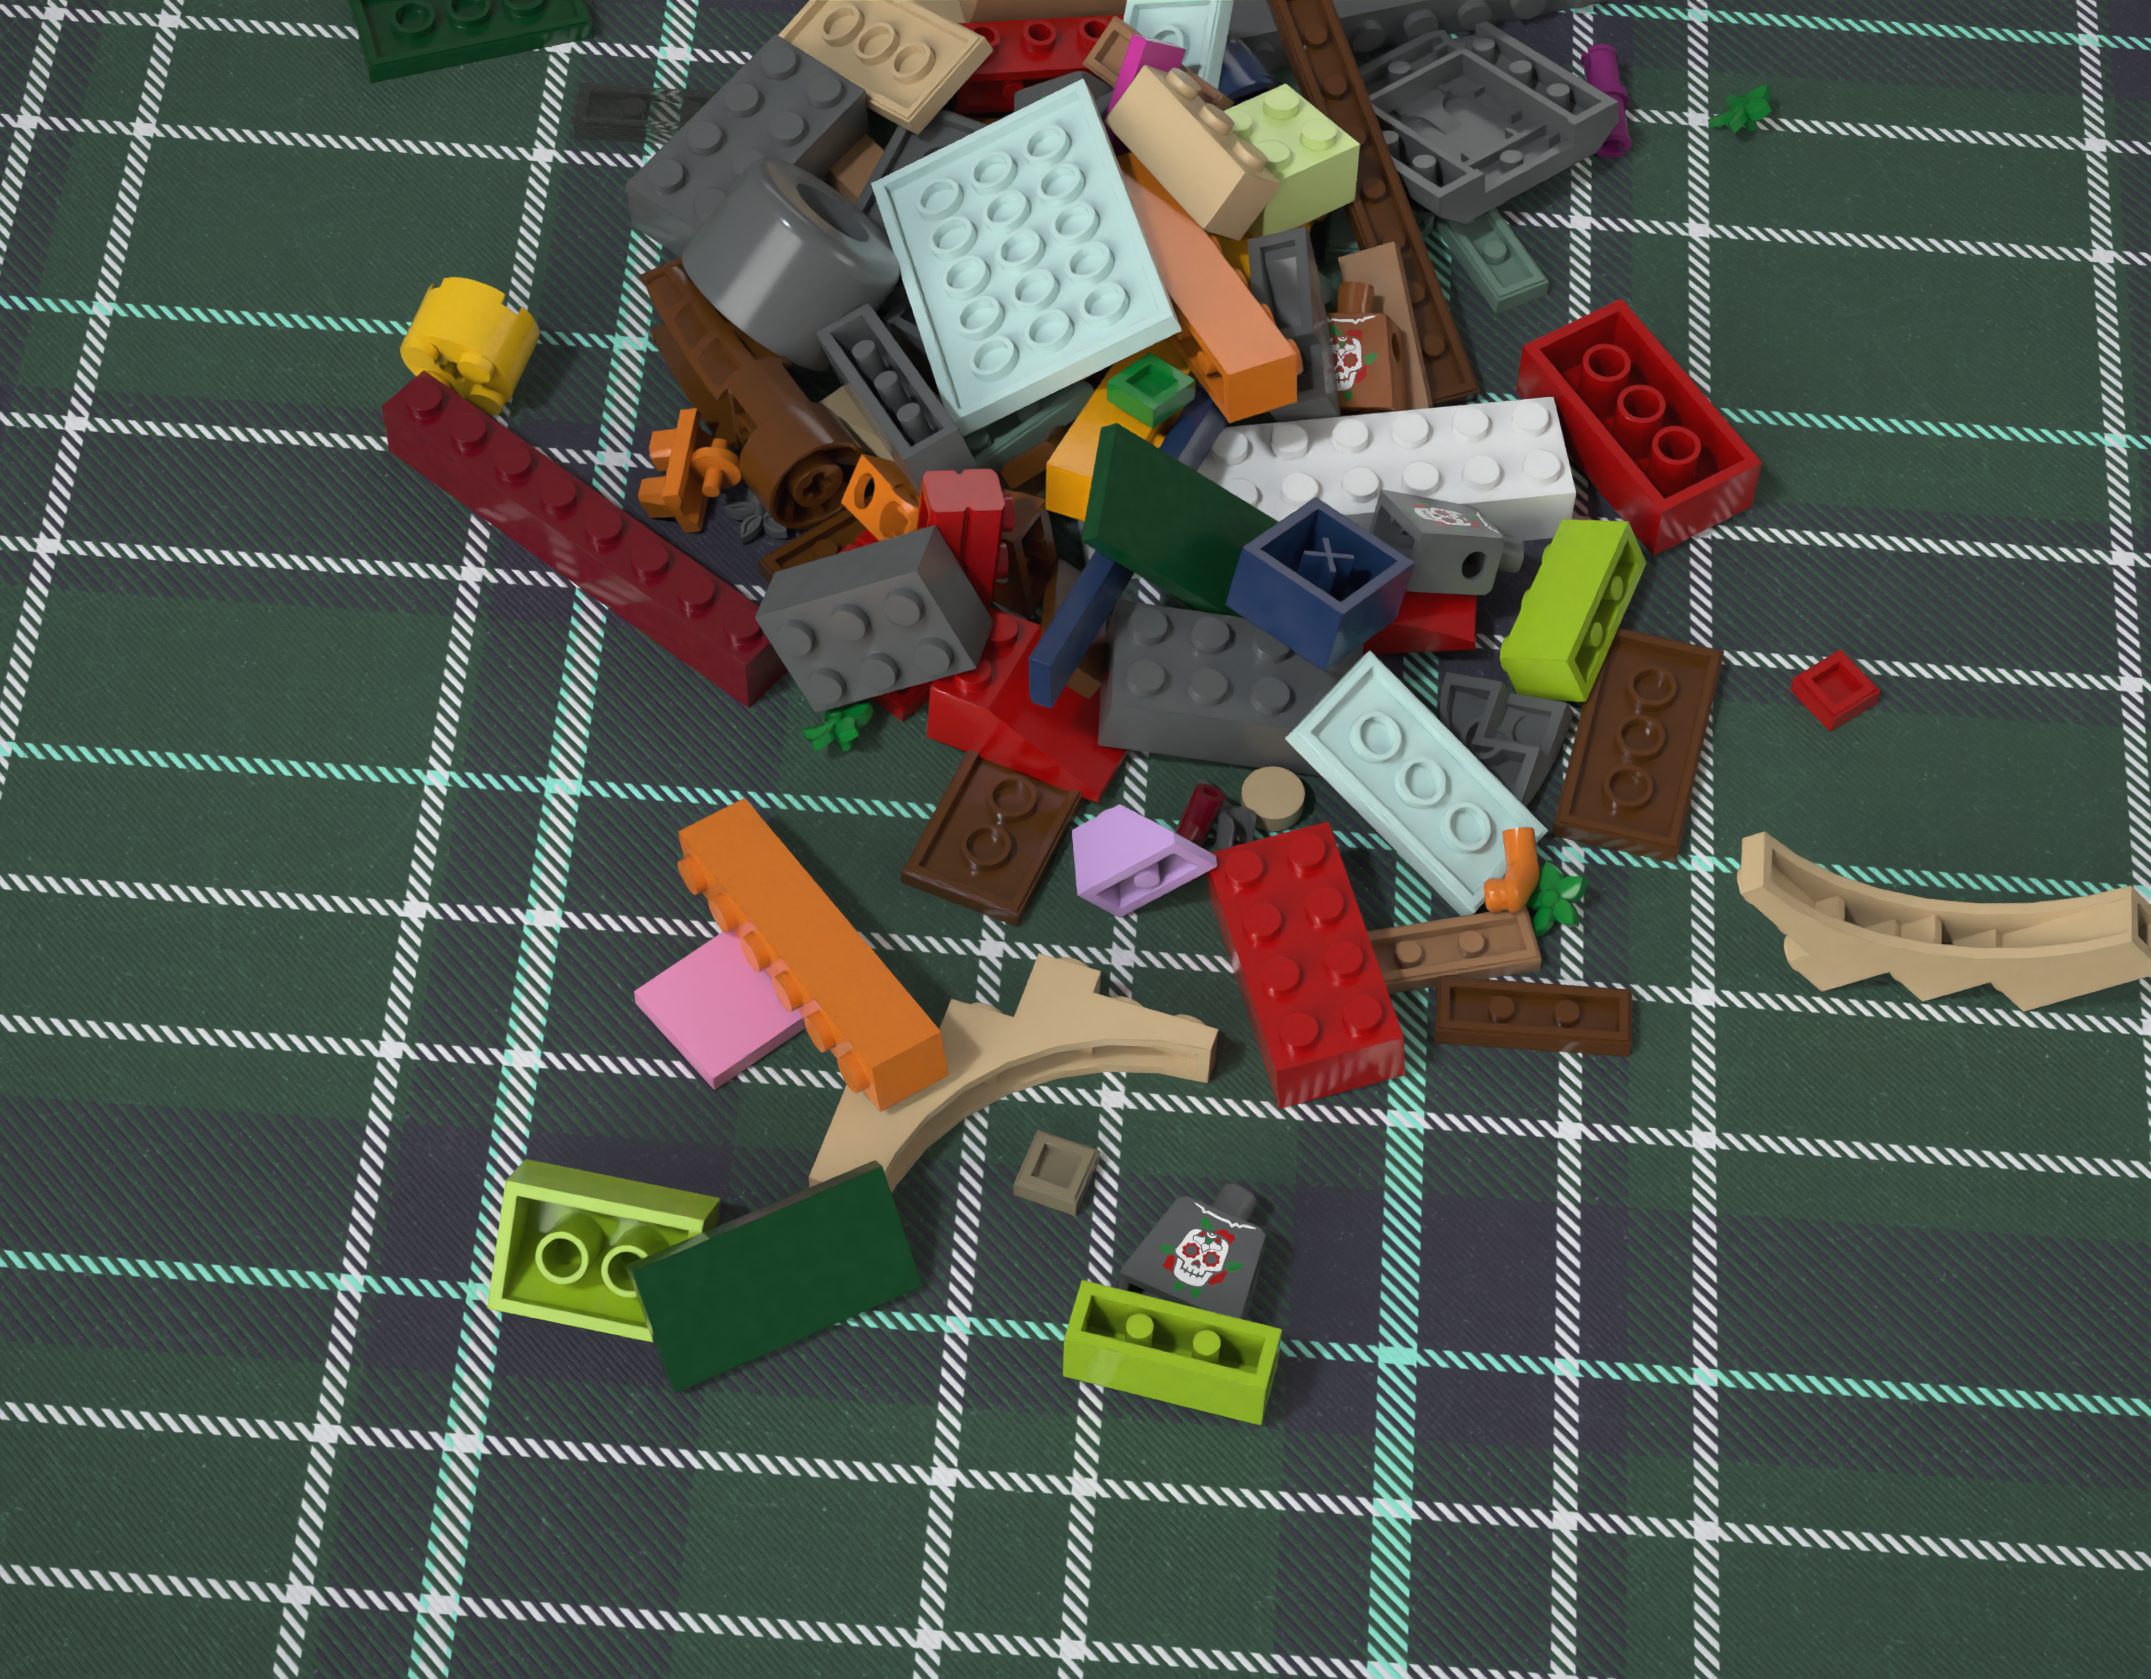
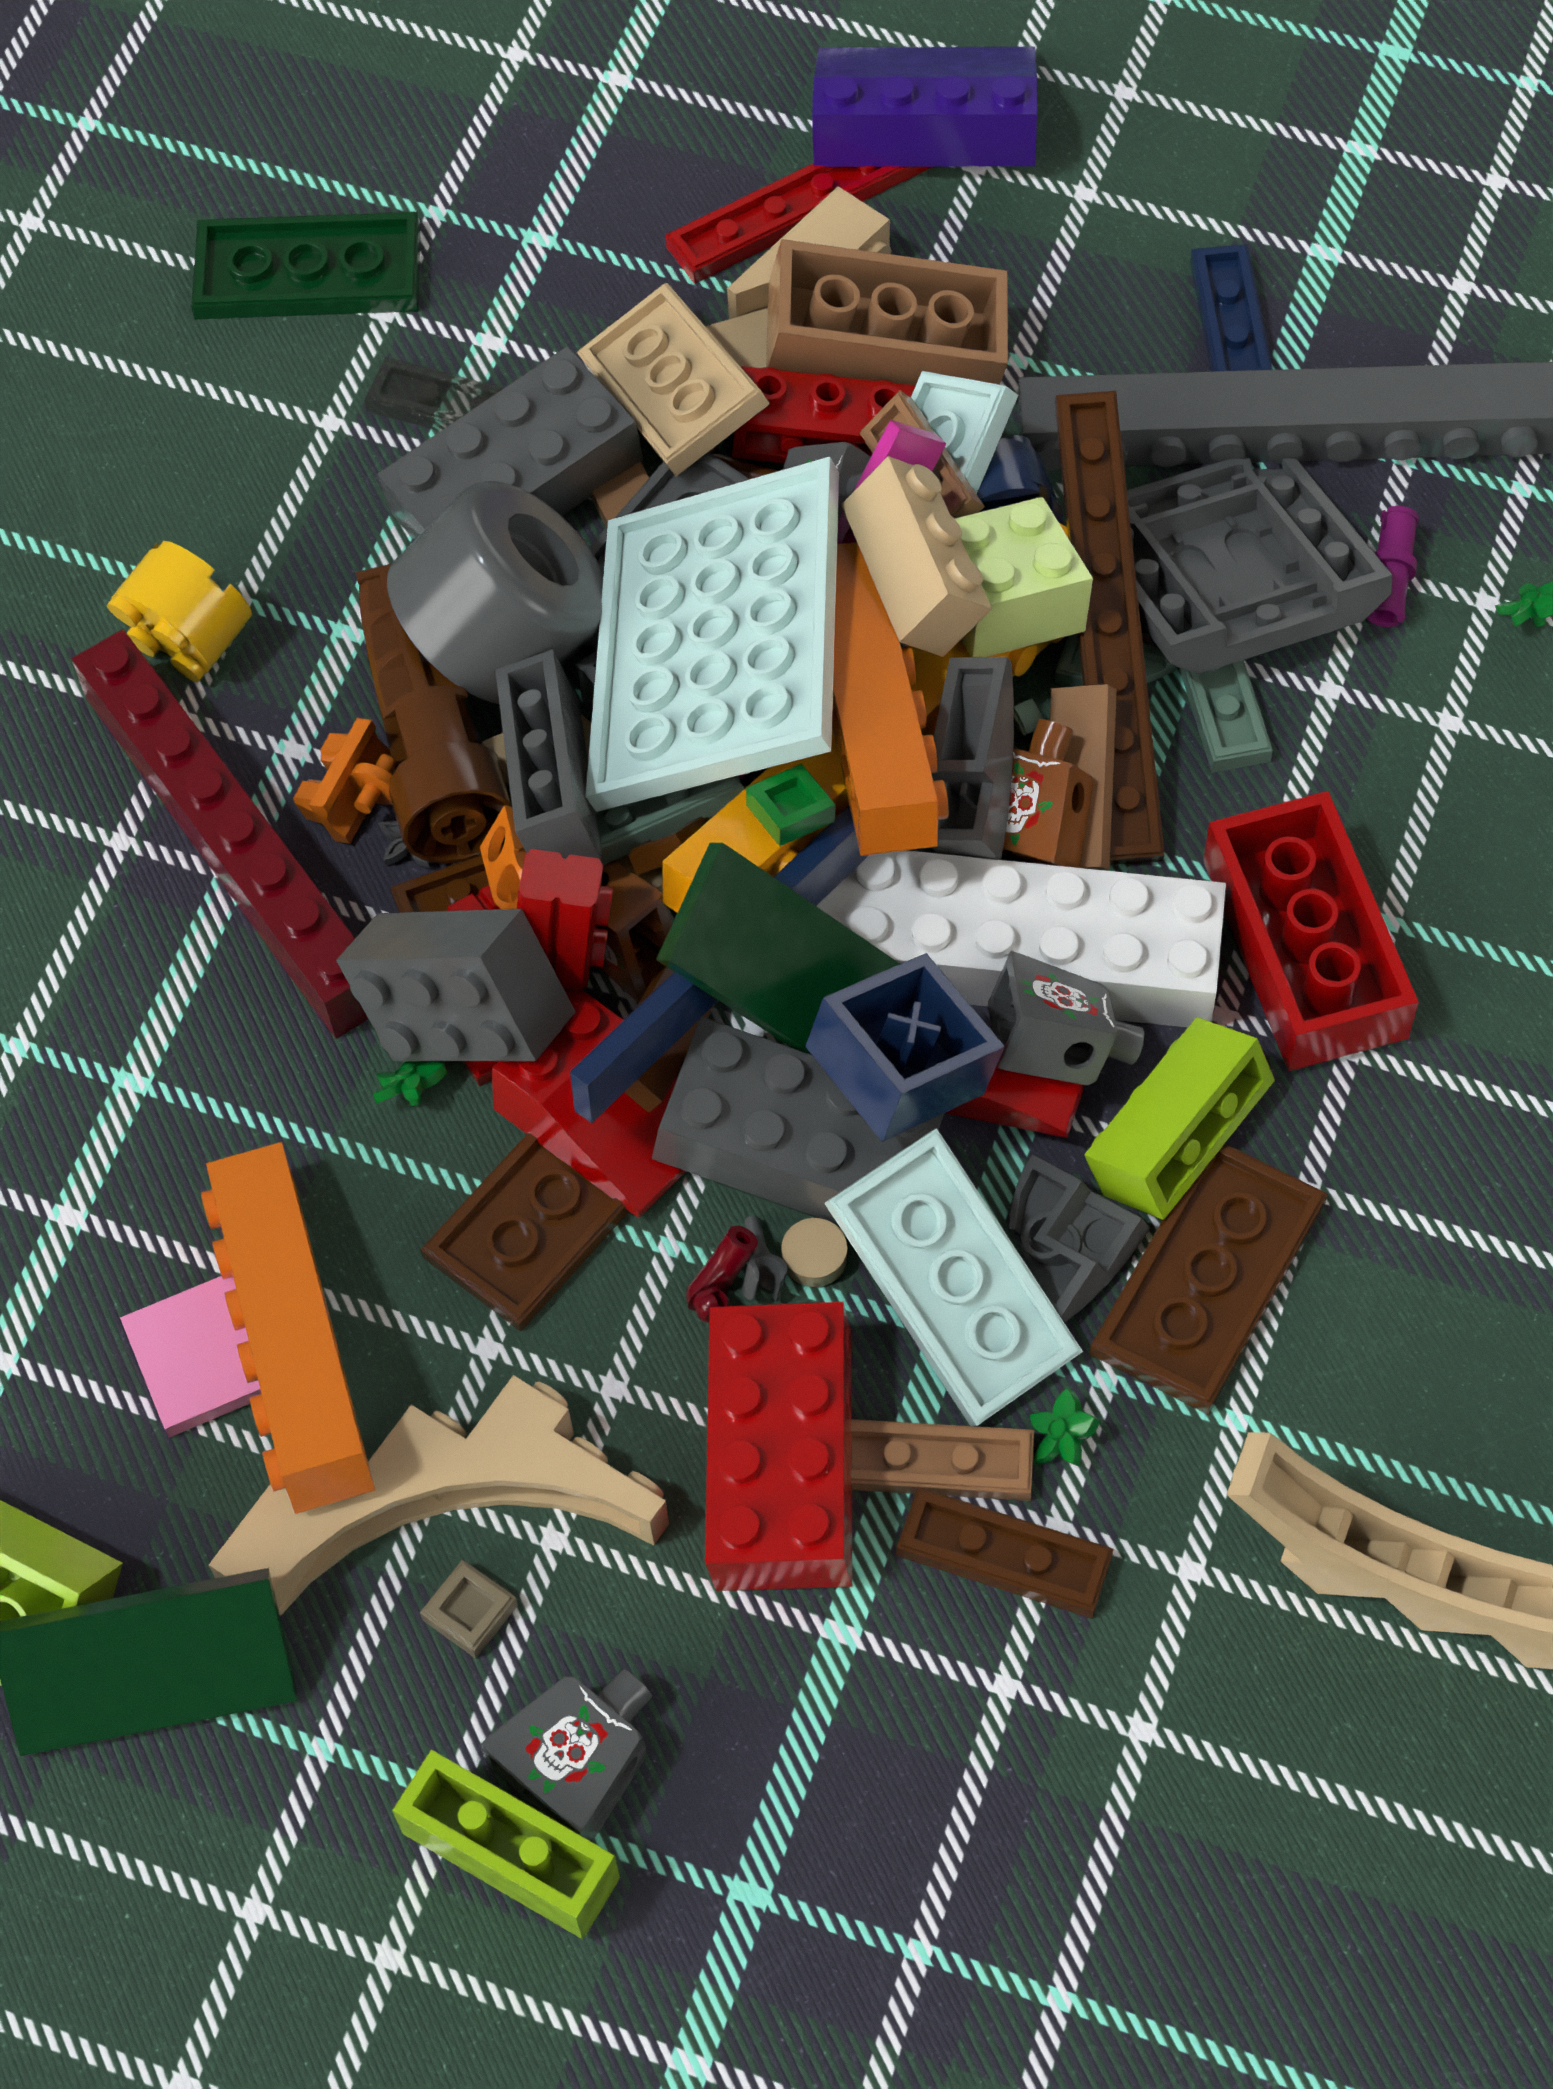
camera: 20 degrees right, 5 degrees up
(1132, 860) = (642, 1292): lavender slope -> none
(1521, 874) = (1033, 1400): orange arm -> none
(1835, 690) = (1434, 1261): red tile -> none

